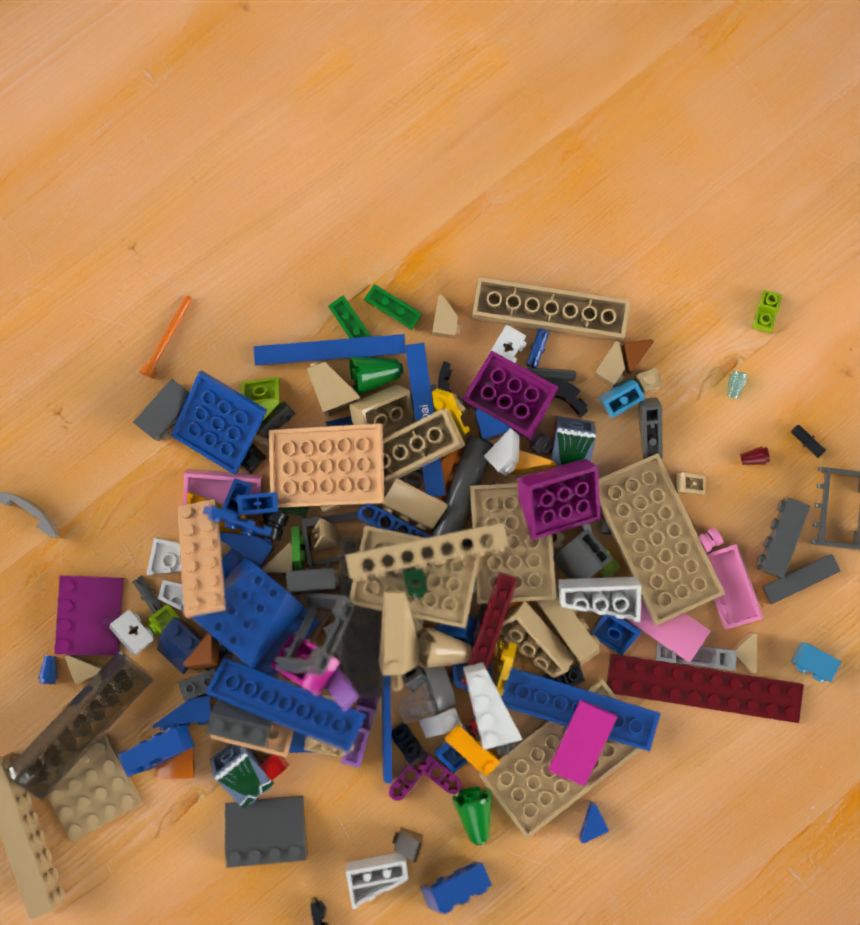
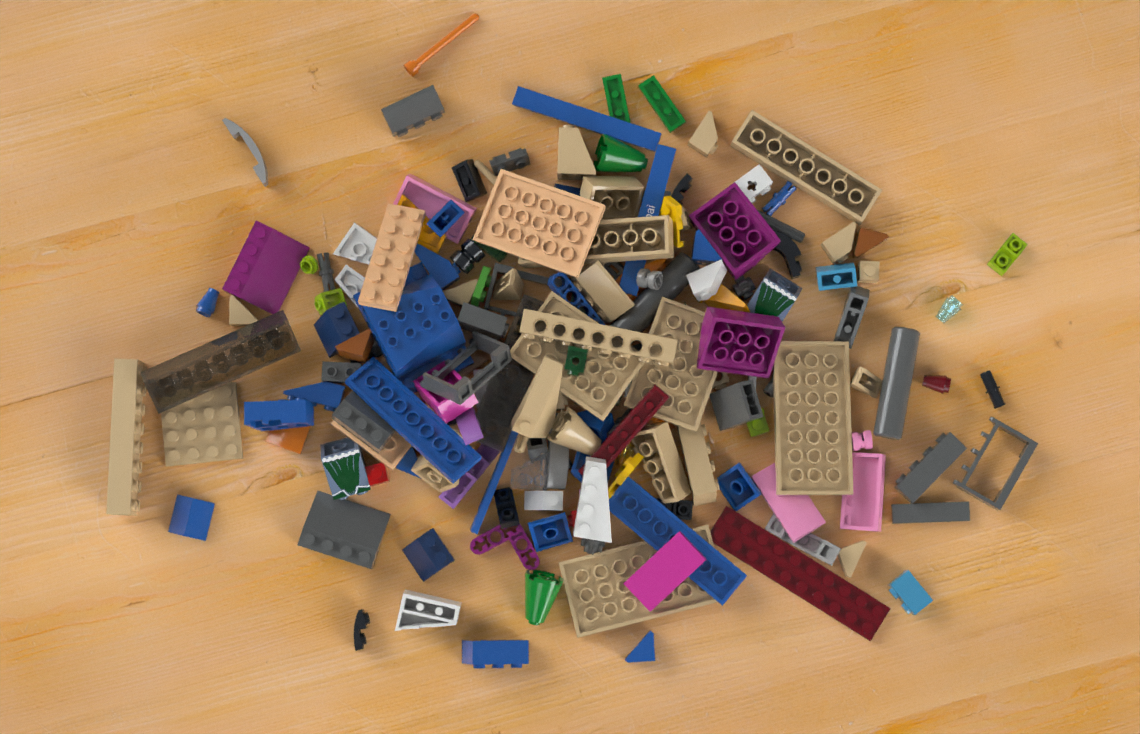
camera: 20 degrees right, 0 degrees up
(117, 881) = (191, 517): none -> blue slope
(121, 628) = (296, 309): white brick -> none
(128, 594) = (309, 264): none -> lime plate
(218, 422) = (457, 142): blue plate -> none
(231, 522) = (432, 234): blue wing -> none
(257, 503) = (462, 231): blue slope -> none
(263, 392) = (503, 136): lime slope -> none
(355, 819) = (428, 554): none -> dark blue slope
(408, 843) = (468, 594): dark brown slope -> none
(451, 474) = (649, 279): none -> light grey wheel
(472, 750) = (562, 534): light orange slope -> none
(603, 595) = (740, 446): white wedge -> none
(719, 473) = (896, 383): none -> dark grey cylinder

